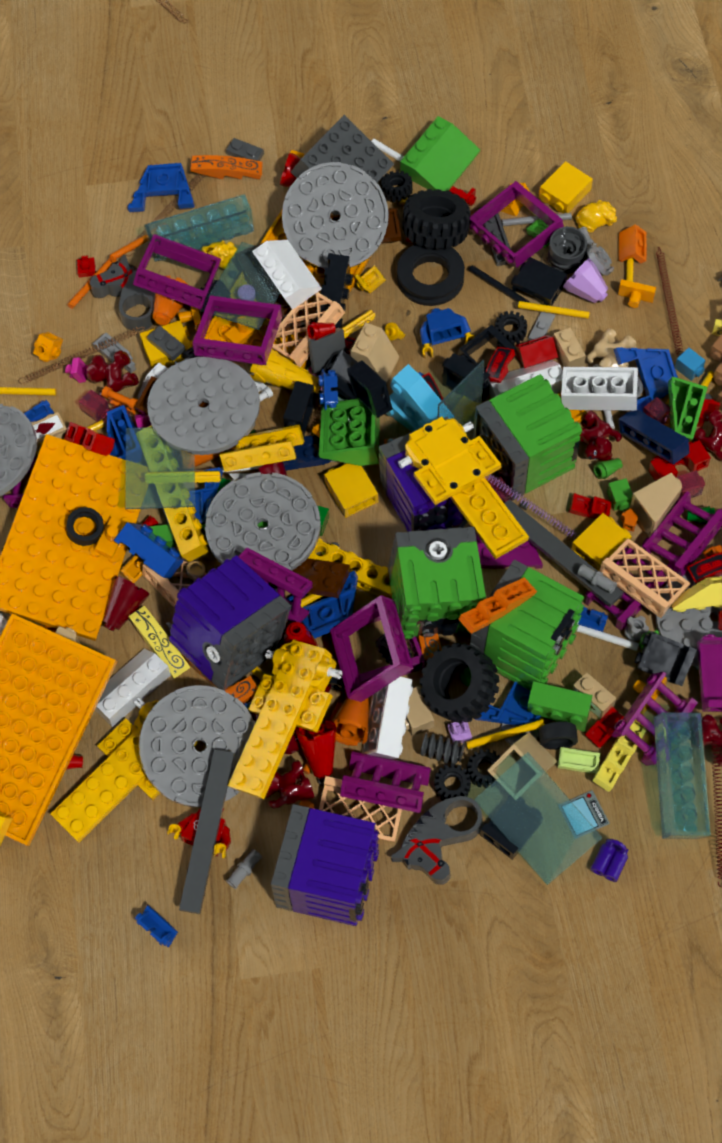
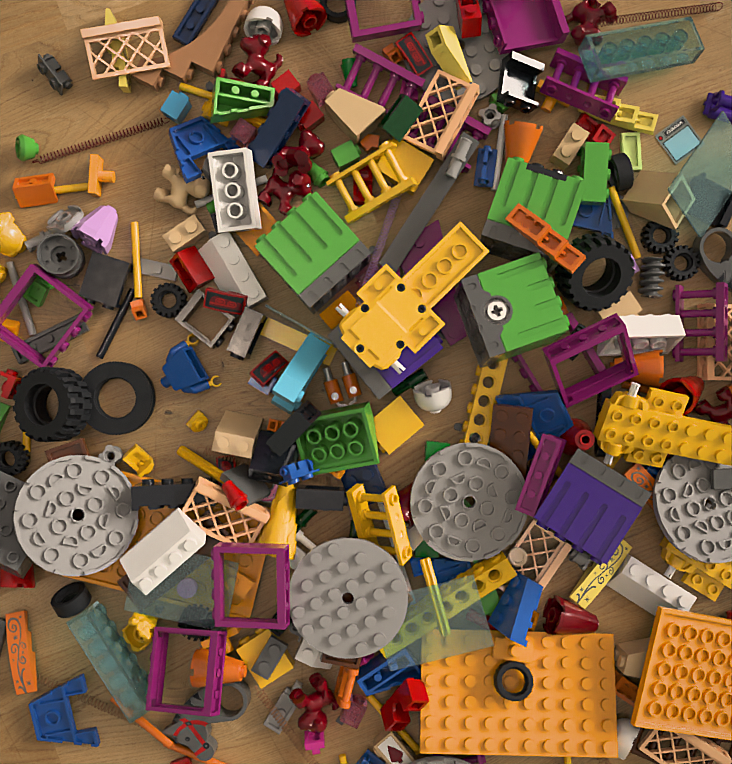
camera: 100 degrees left, 25 degrees up
(261, 206) = (71, 600): none -> black tyre
(280, 395) = (304, 517): none -> dark green axle
(371, 524) = (433, 396): none -> white cylinder
(380, 259) = (106, 455): none -> light grey brick
(388, 510) = (410, 382): none -> dark green axle
(507, 303) = (139, 309): none -> orange piece
(575, 517) = (387, 192): none -> yellow fence
(604, 648) = (521, 139): none -> orange cone
(626, 448) = (309, 147): none -> dark red animal
(646, 538) = (400, 117): none -> dark green brick
(671, 243) = (26, 147): none -> bright green cone

